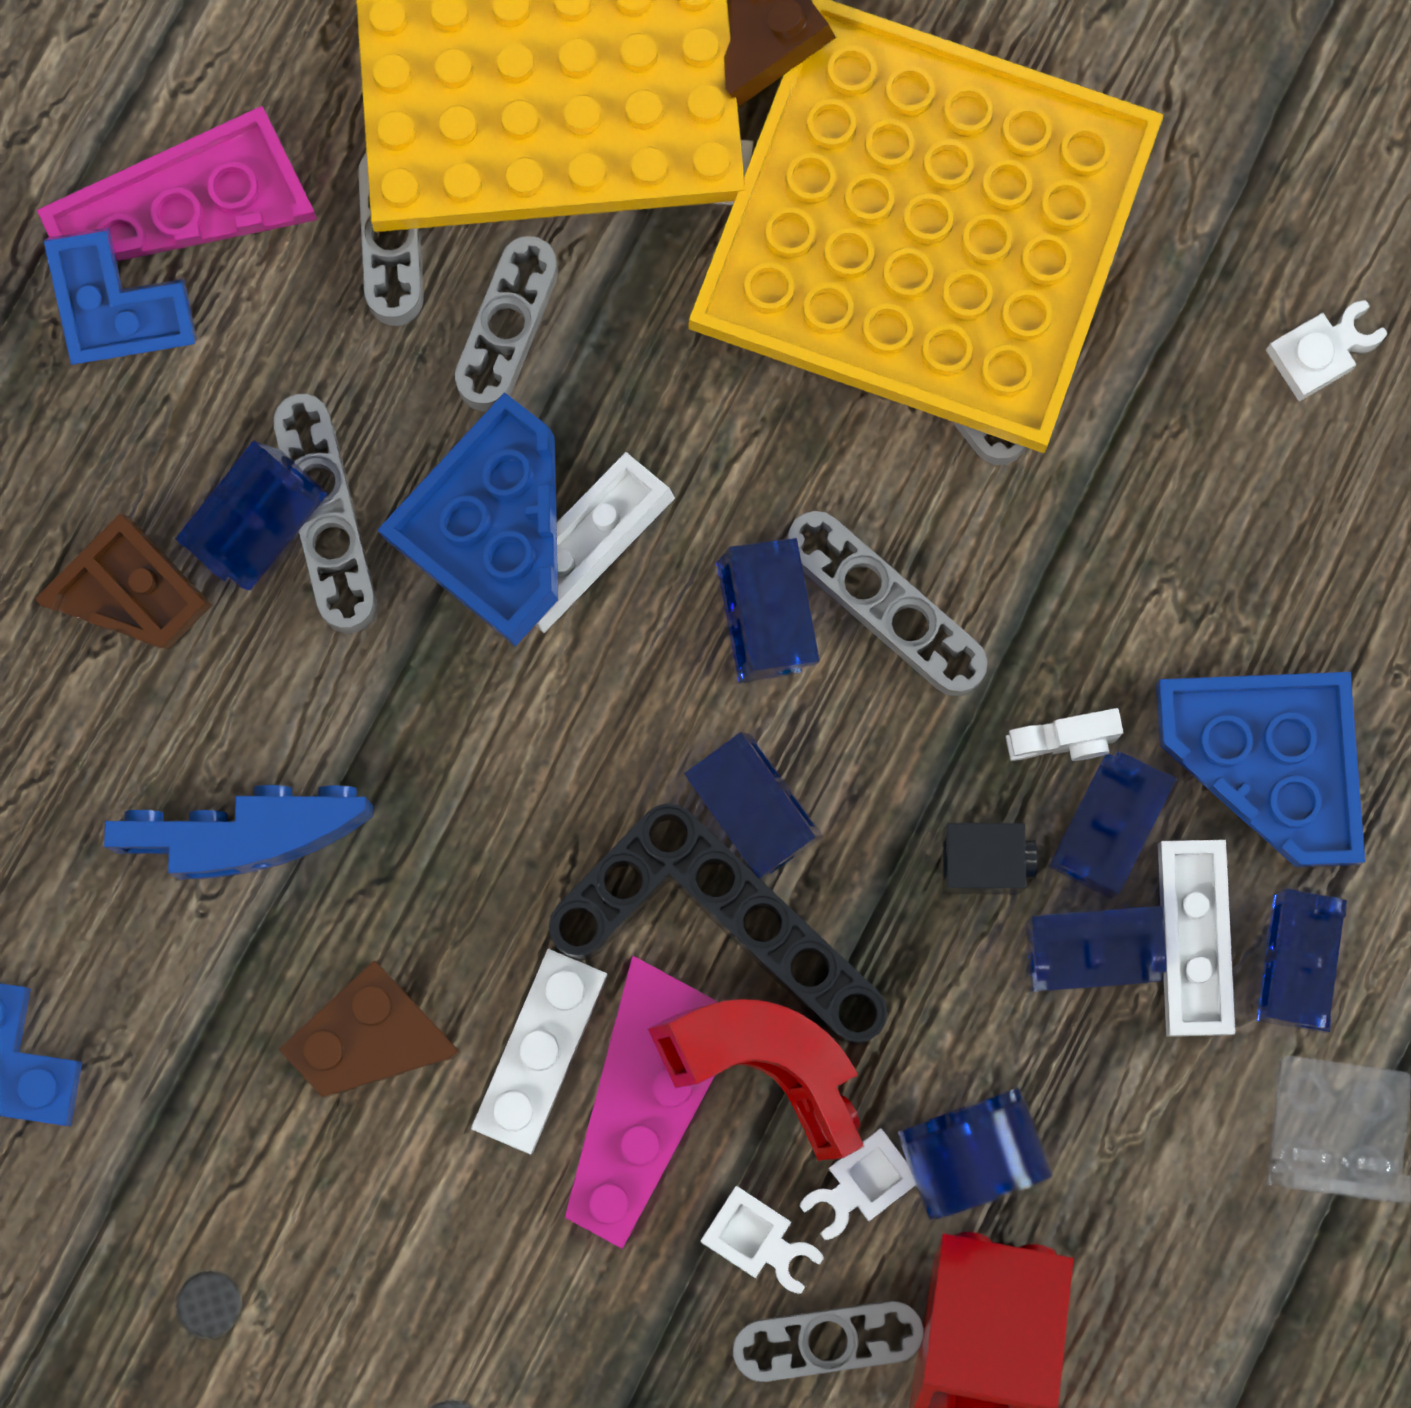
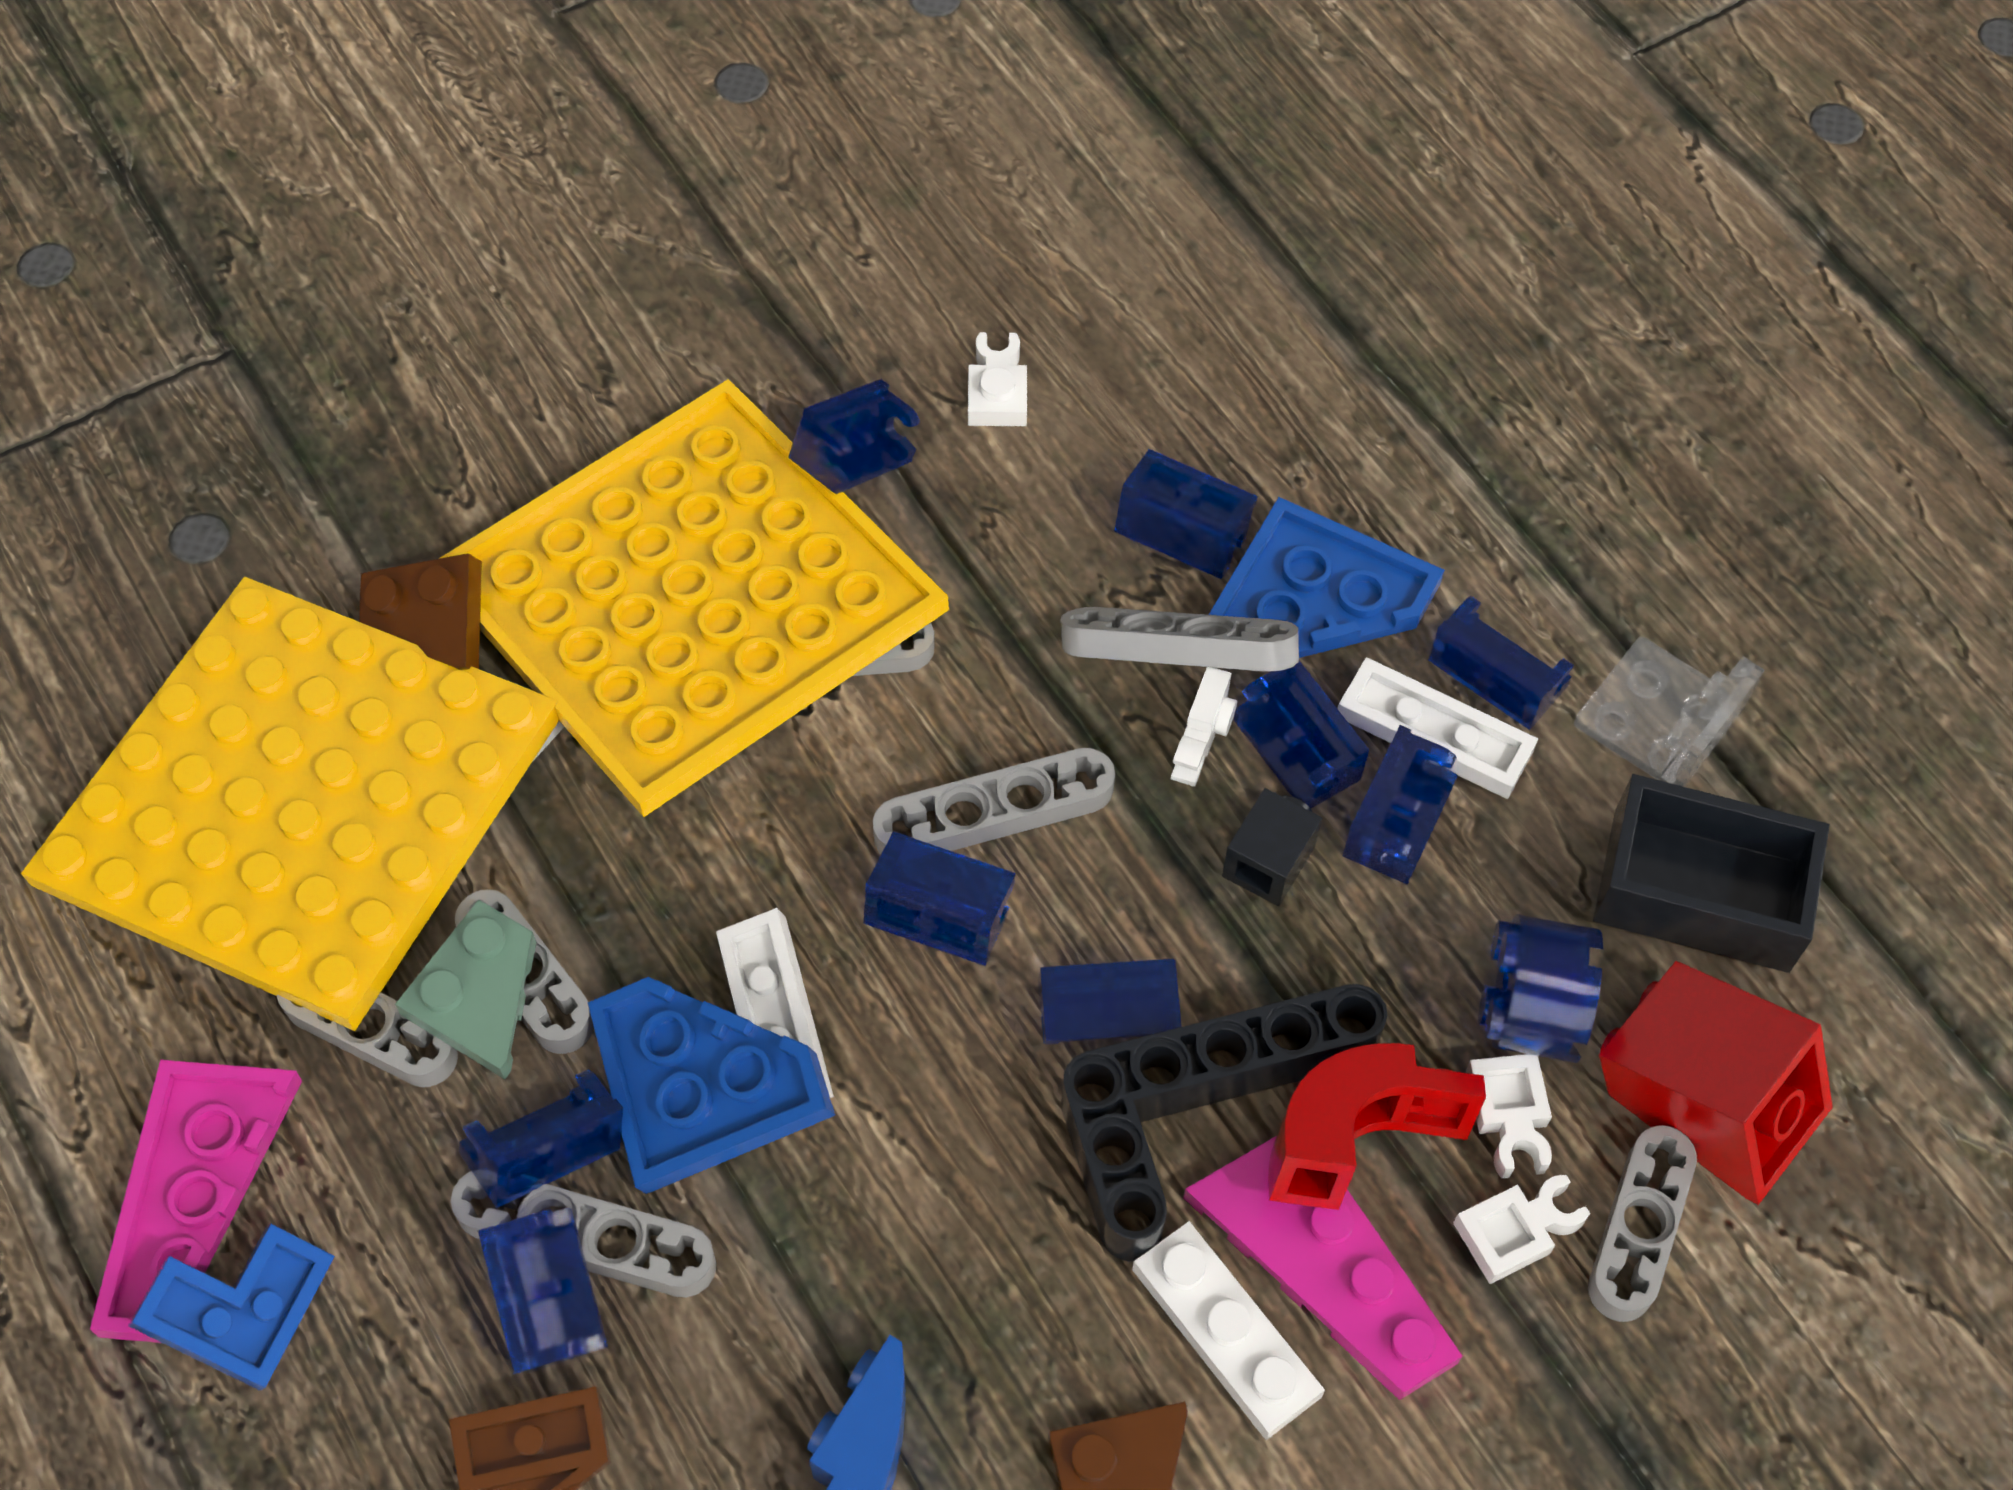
camera: 60 degrees left, 20 degrees down
(369, 436) = (544, 1142): none -> clear blue hinge
(460, 298) = (475, 987): none -> sand green wing
(1156, 735) = (1180, 638): none -> light grey beam
(1166, 265) = (853, 437): none -> clear blue hinge
(1184, 1251) = (1712, 873): none -> black piece
(1280, 597) = (1184, 513): none -> clear blue hinge

